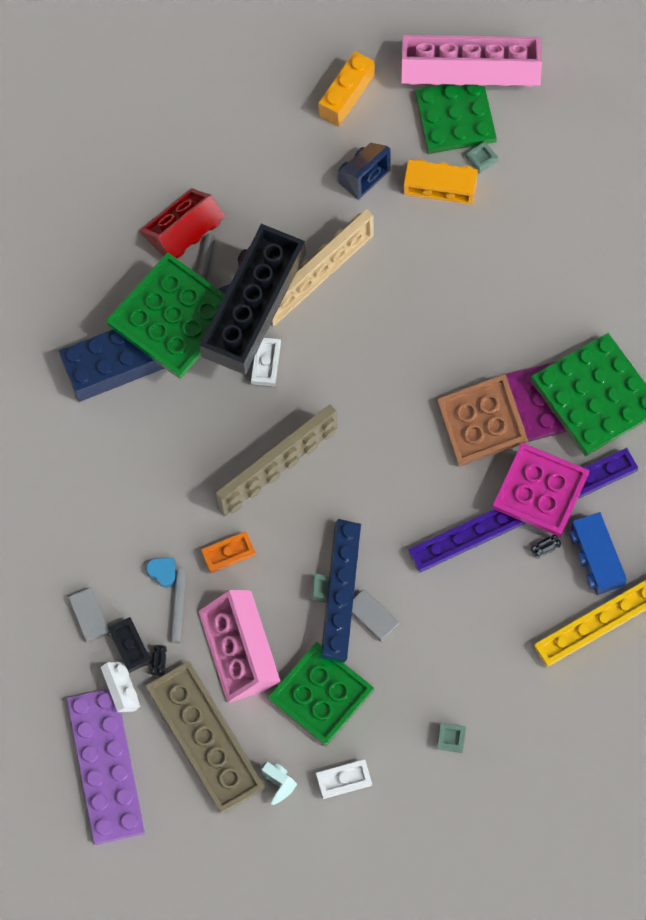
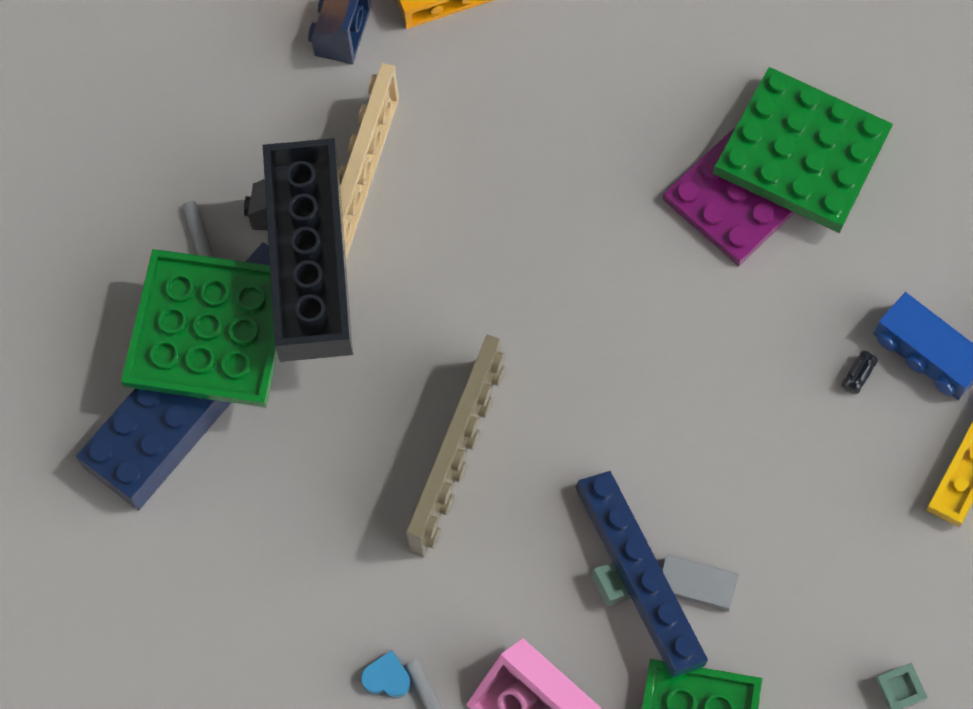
camera: 30 degrees left, 0 degrees up
(183, 223) = (144, 204): red slope -> none
(228, 552) = (460, 603): orange plate -> none
(266, 363) = (366, 333): white plate -> none
(482, 420) = (684, 254): nougat plate -> none
(496, 523) = (801, 345): dark purple plate -> none
(541, 489) = (815, 303): dark pink plate -> none

